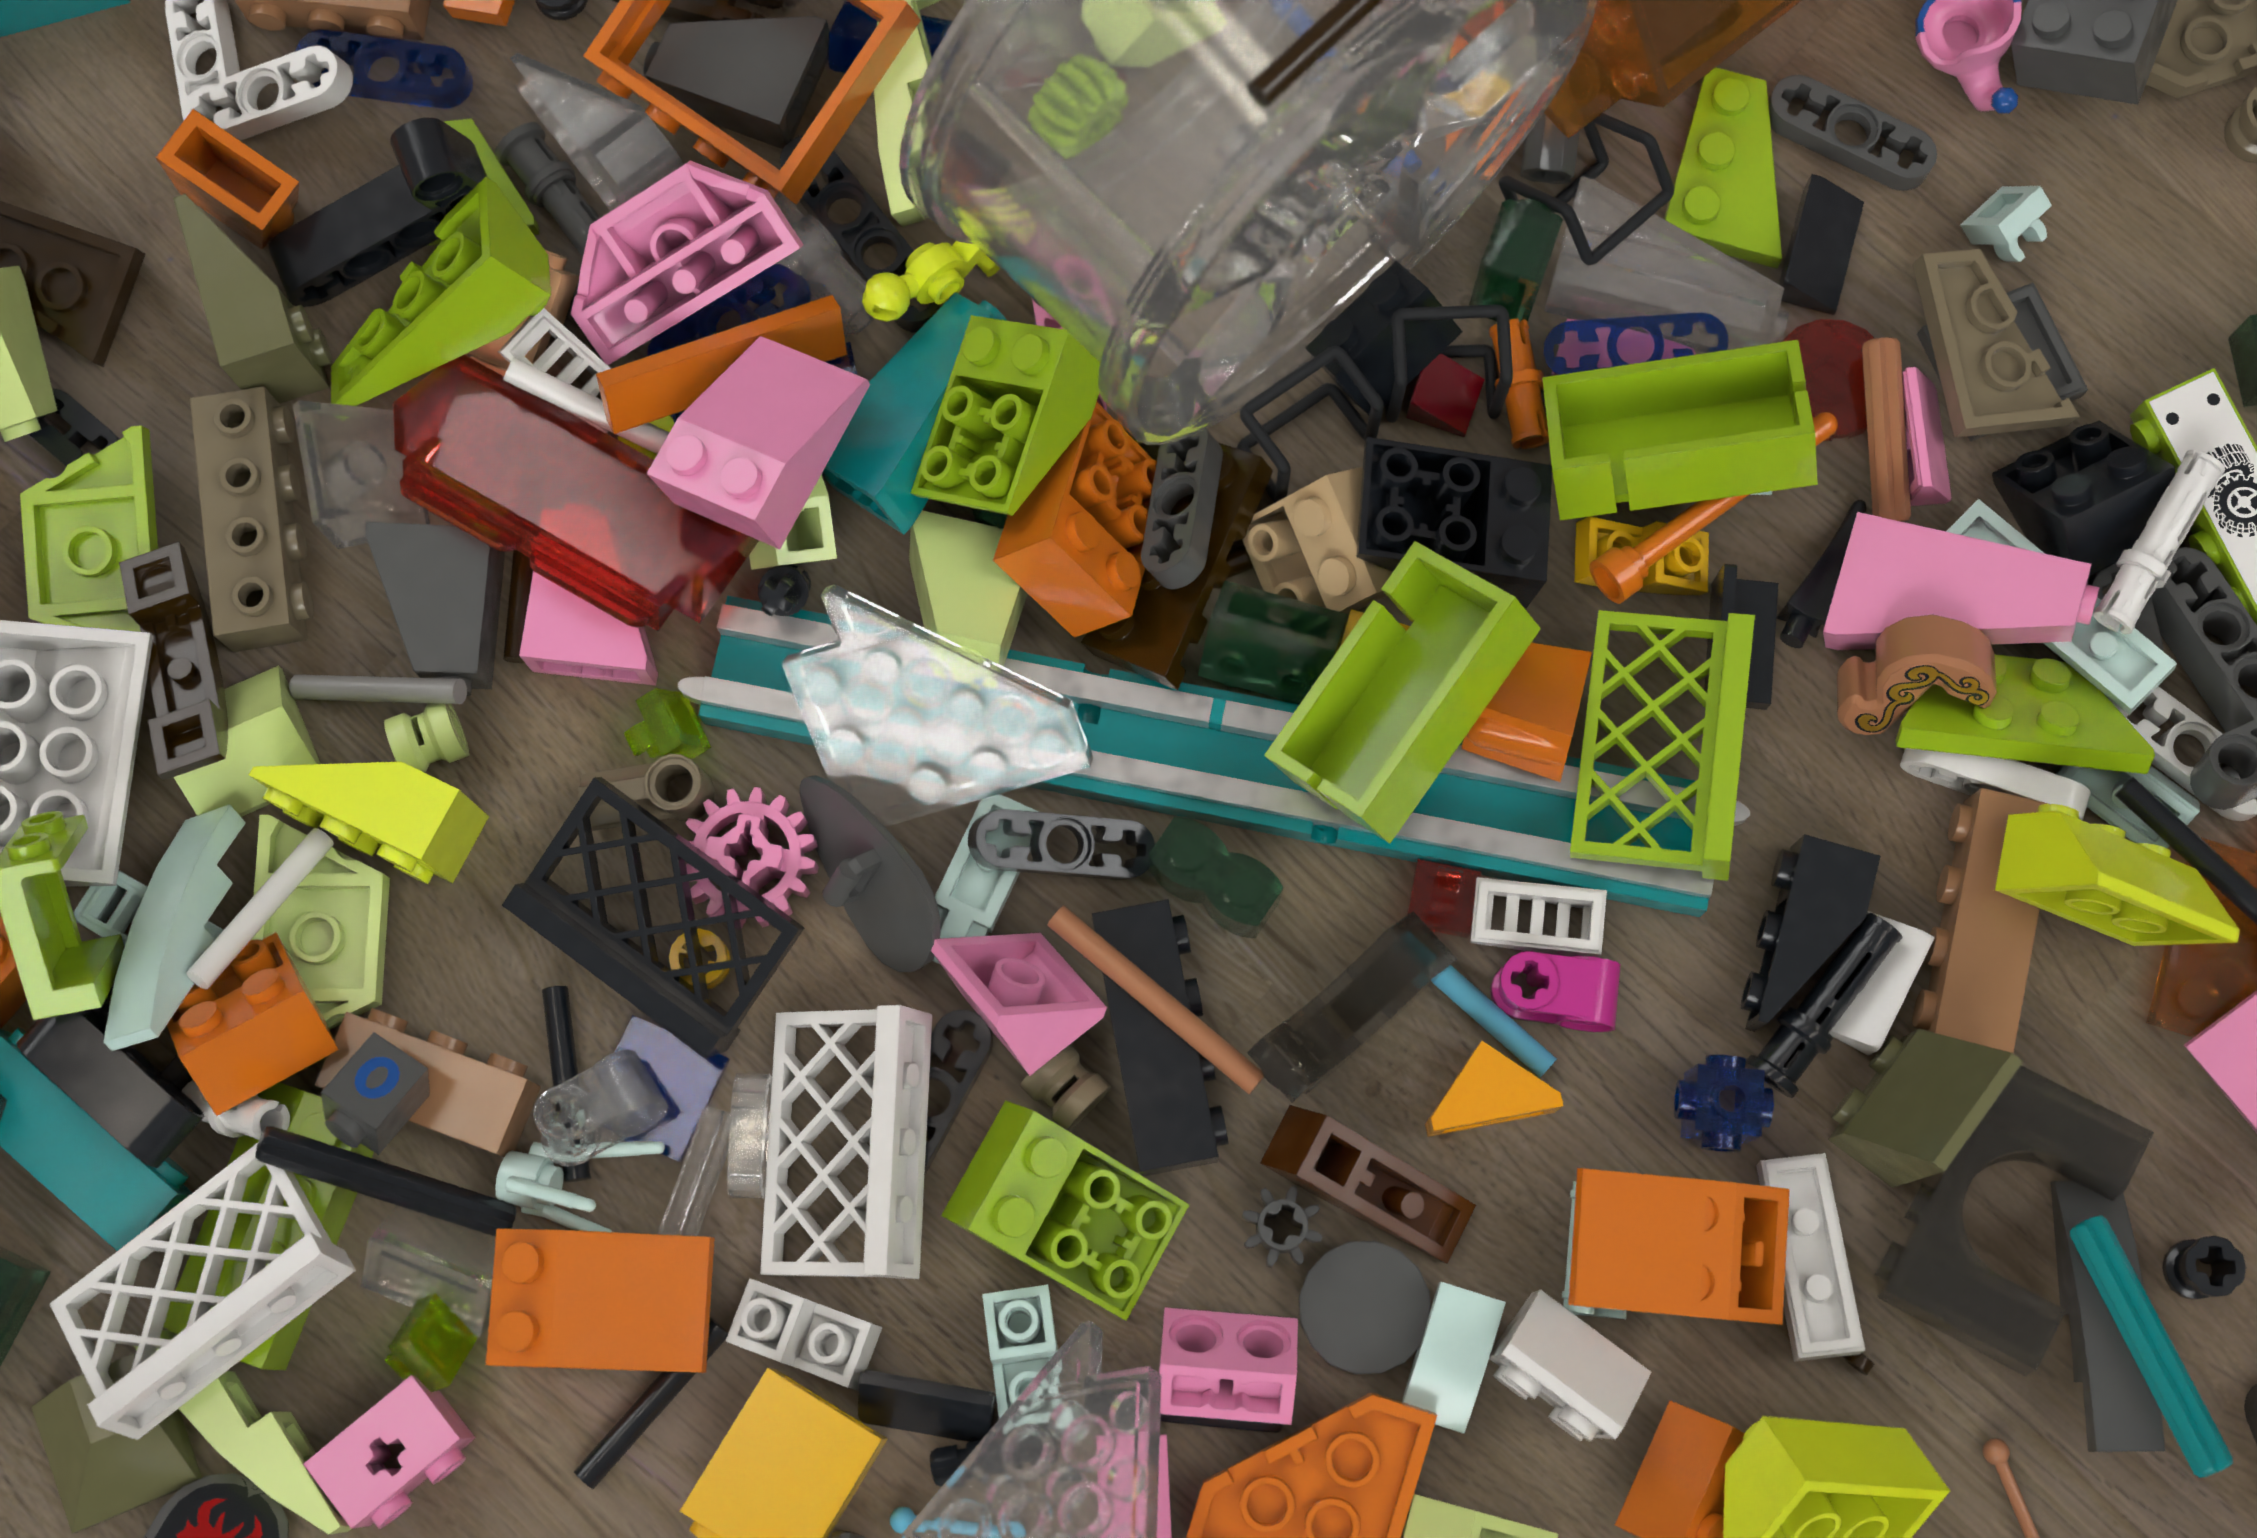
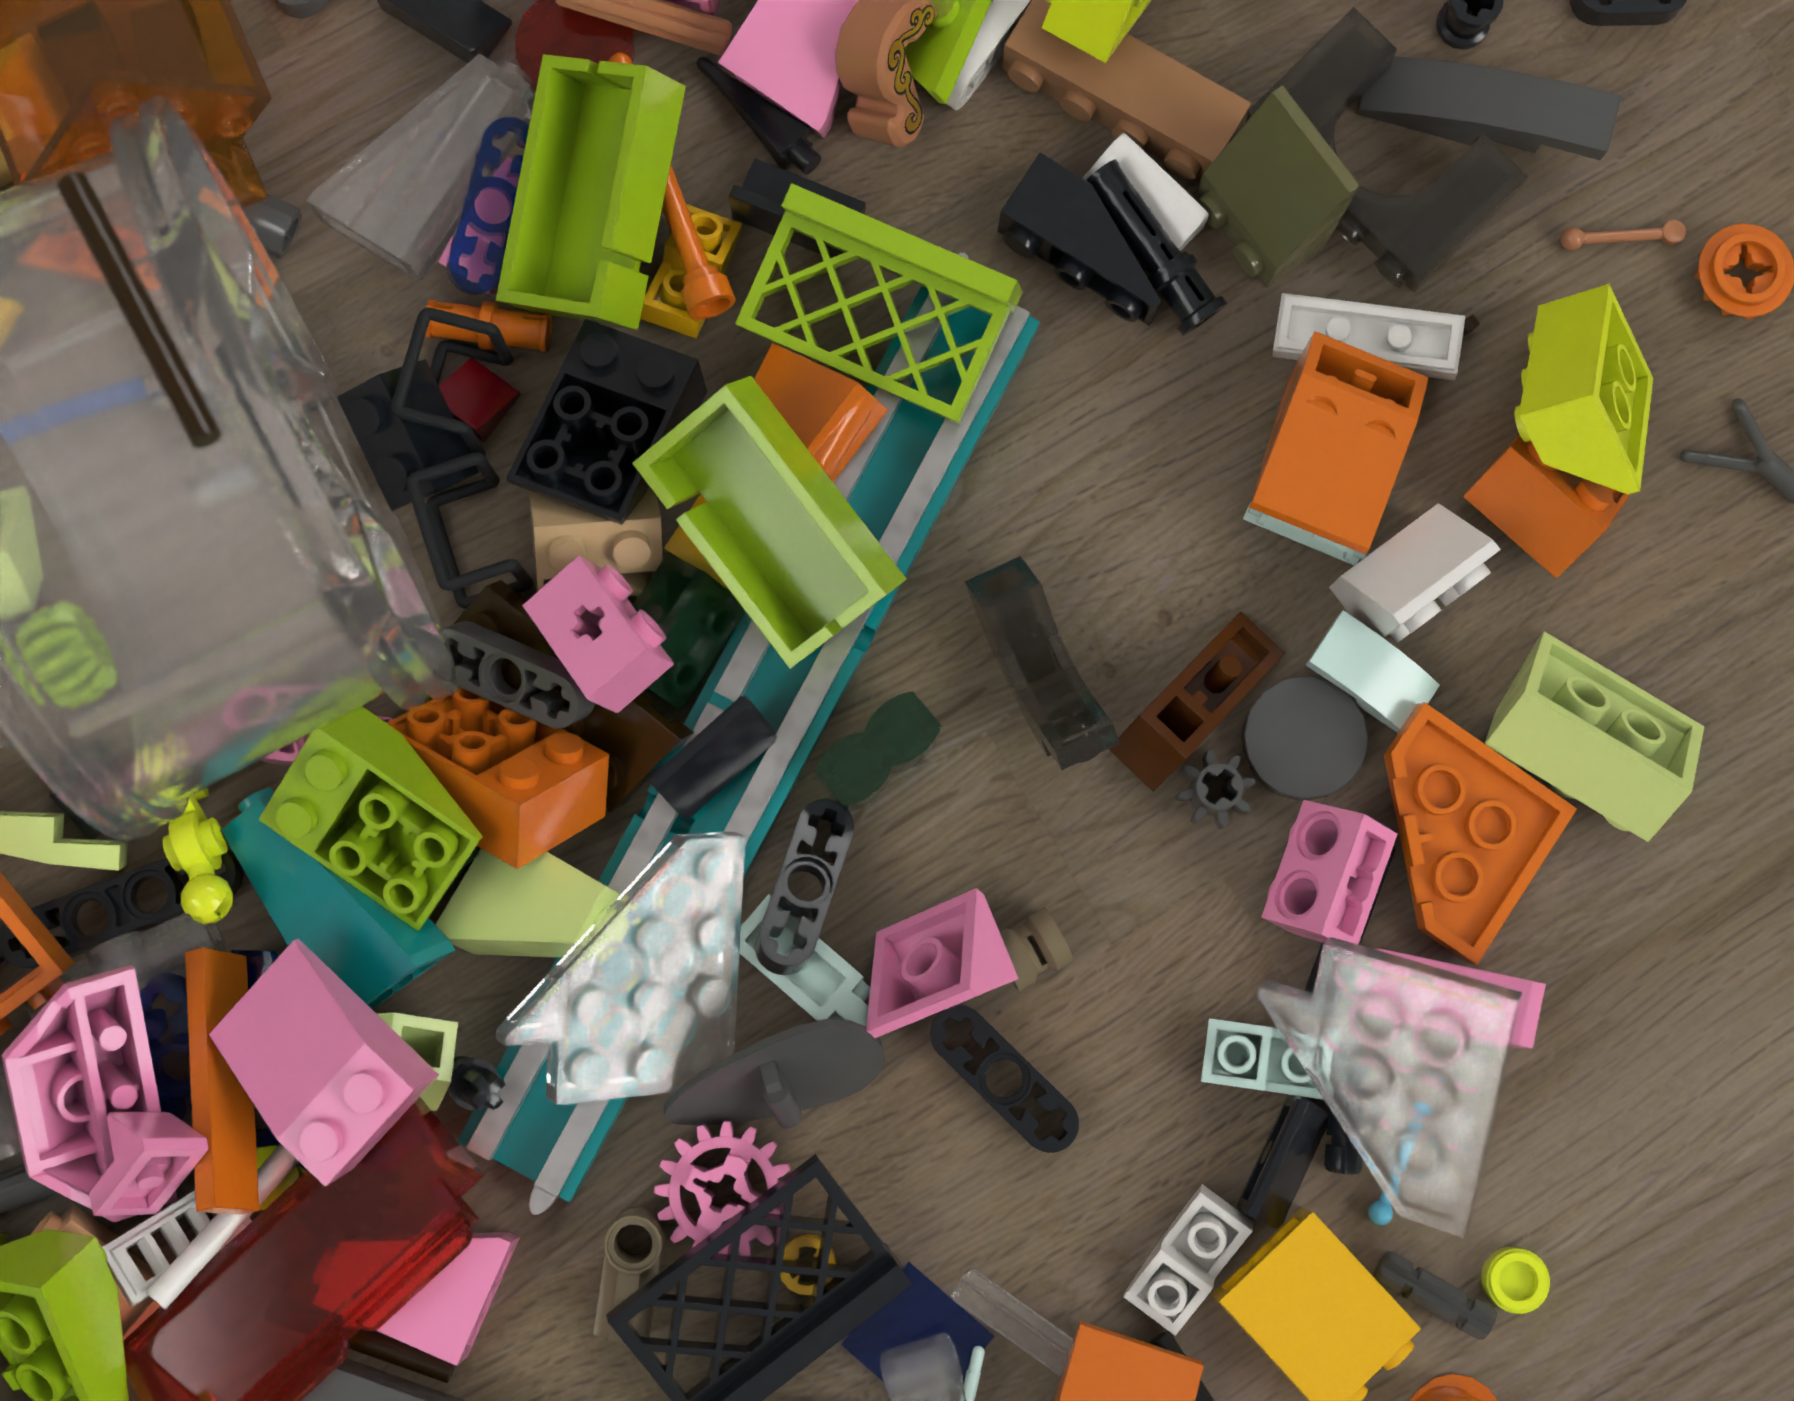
camera: 80 degrees left, 5 degrees up
(631, 320) = (150, 1162): none -> bright pink slope
(668, 726) = (571, 1235): clear neon green tile -> none
(749, 1135) = (991, 1260): clear beam -> none
(895, 1150) = (1055, 1128): white fence -> none
(1065, 1209) = (1143, 985): lime slope -> none
(1156, 999) = (982, 840): nougat bar -> none
(1158, 716) = (714, 757): none -> black slope
(1158, 1068) = (1011, 851): black brick -> none
(1241, 566) = (599, 633): none -> bright pink brick
(1443, 897) = (954, 551): clear red tile -> none
(1491, 1092) = (1147, 568): light orange slope -> none
(1495, 1021) = (1085, 539): medium azure bar -> none
(1511, 186) = (294, 268): black piece -> none
(1516, 257) = (371, 287): clear green brick -> none
(1570, 990) = (1073, 469): dark pink piece -> none
(1591, 900) = (1023, 428): white slope -> none
(1704, 1117) = (1215, 384): clear blue brick -> none
(1728, 171) = (343, 70): lime wing -> none
(2151, 1347) = (1533, 75): teal axle -> none

